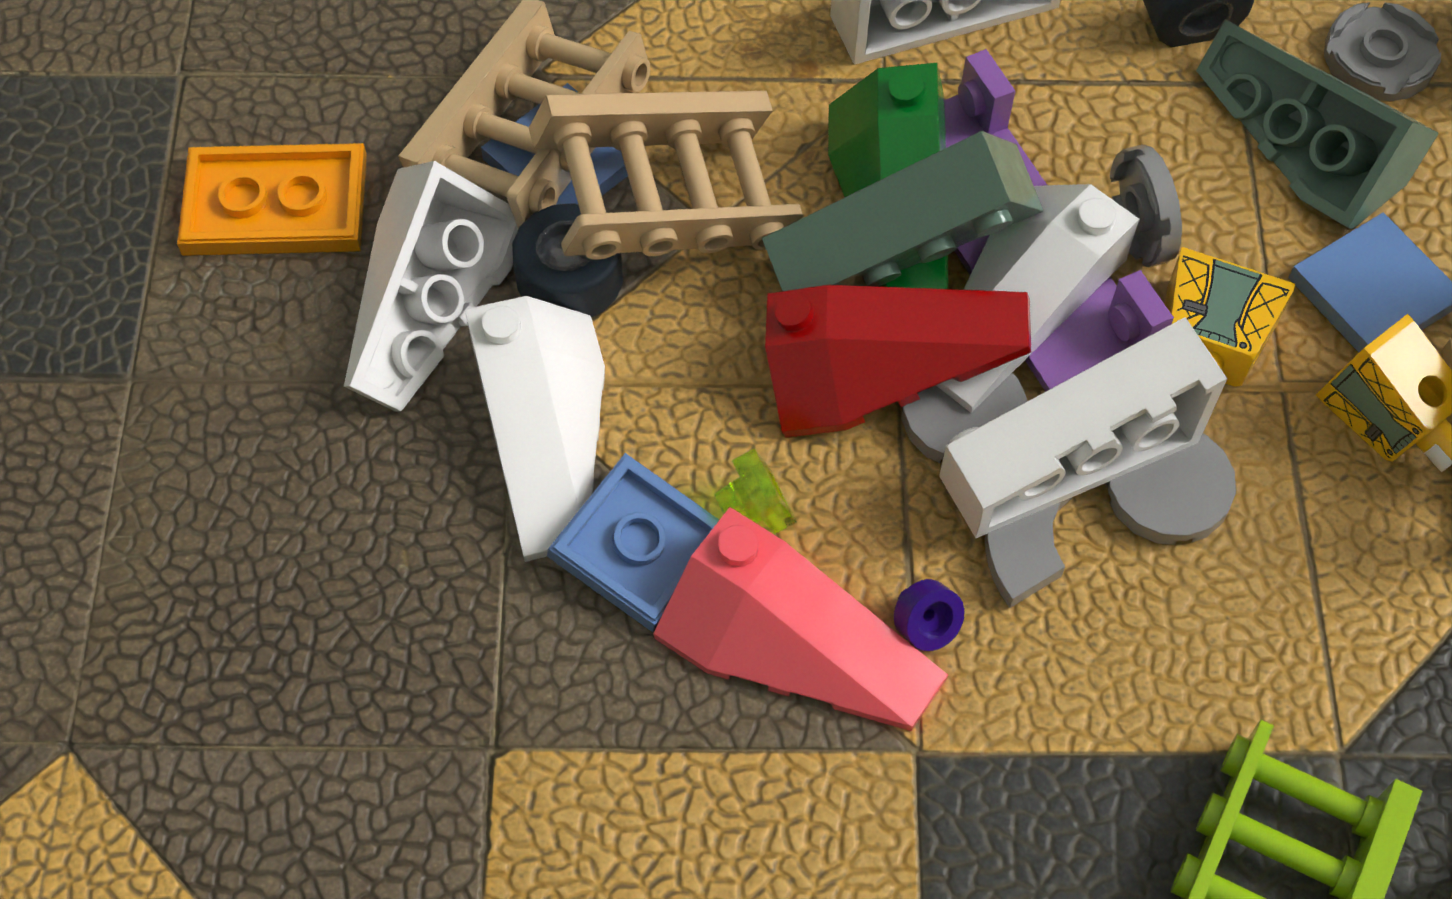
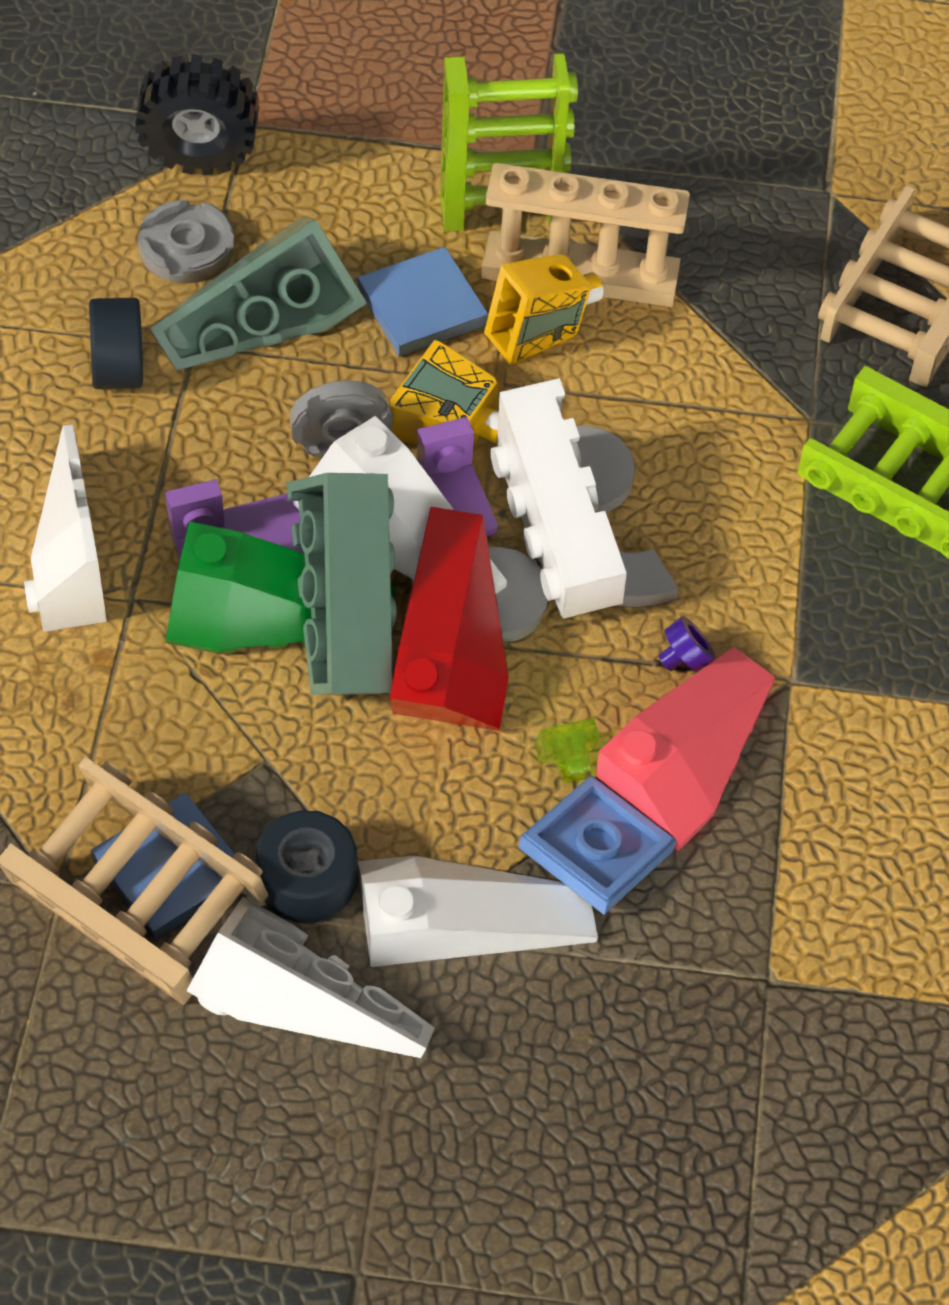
camera: 85 degrees left, 5 degrees down
(273, 199) = (169, 1131): light orange tile -> none
(671, 119) = (203, 775): tan fence -> none

